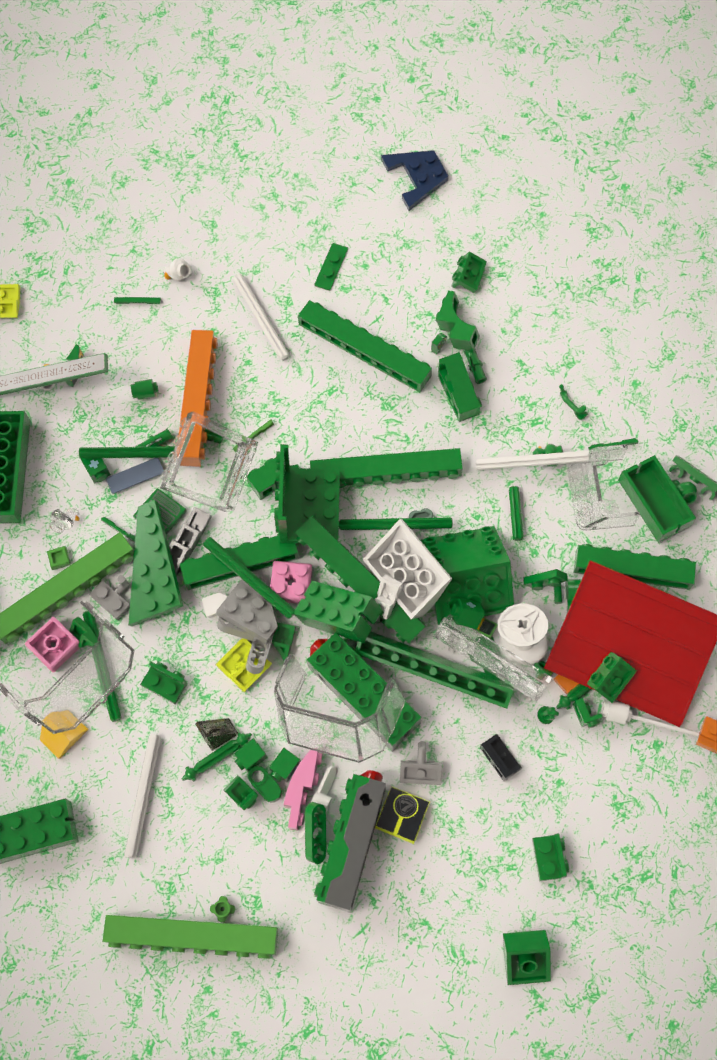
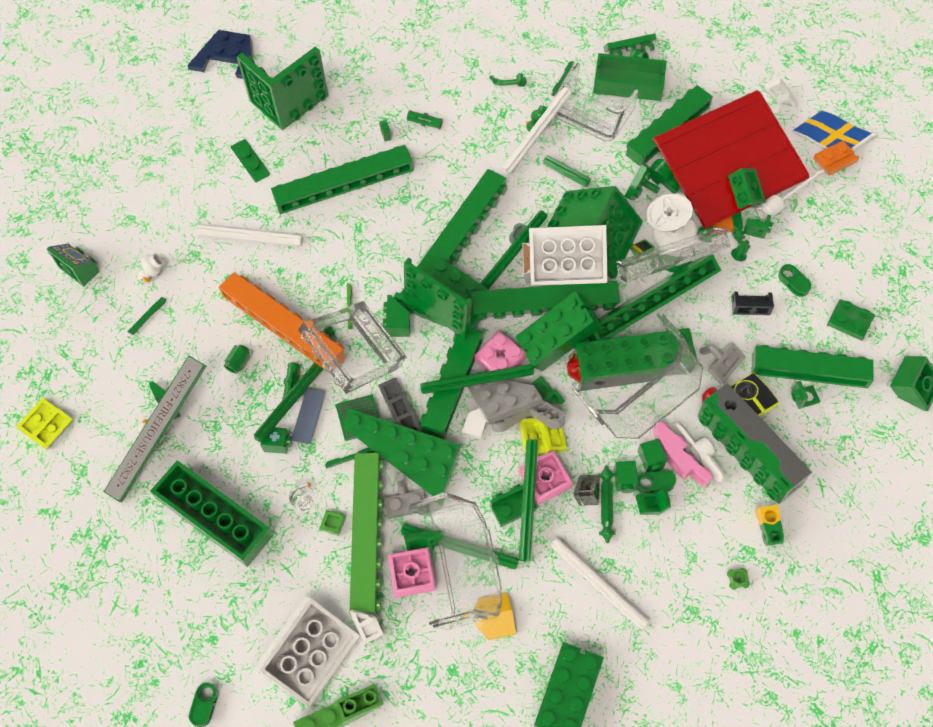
camera: 55 degrees left, 5 degrees down
(139, 216) = (74, 262): none -> green slope
(170, 690) = (528, 500): none -> green axle
(190, 935) = (745, 616): bright green brick -> none
(201, 679) = (558, 481): none -> bright pink brick
(288, 906) = (770, 525): none -> leg
(315, 847) = (726, 465): green beam -> none
(388, 594) = (574, 281): white slope -> none
(405, 246) = (289, 92): none -> green bracket
(434, 856) = (800, 396): none -> green bracket
(458, 387) = (435, 139): green wedge -> none
(461, 334) = (395, 107): green arch -> none
(467, 613) = (626, 247): green brick -> none
(469, 272) = (343, 74): green bracket -> none
(472, 850) = (812, 366): none -> green brick
(554, 785) = (798, 283): none -> green piece

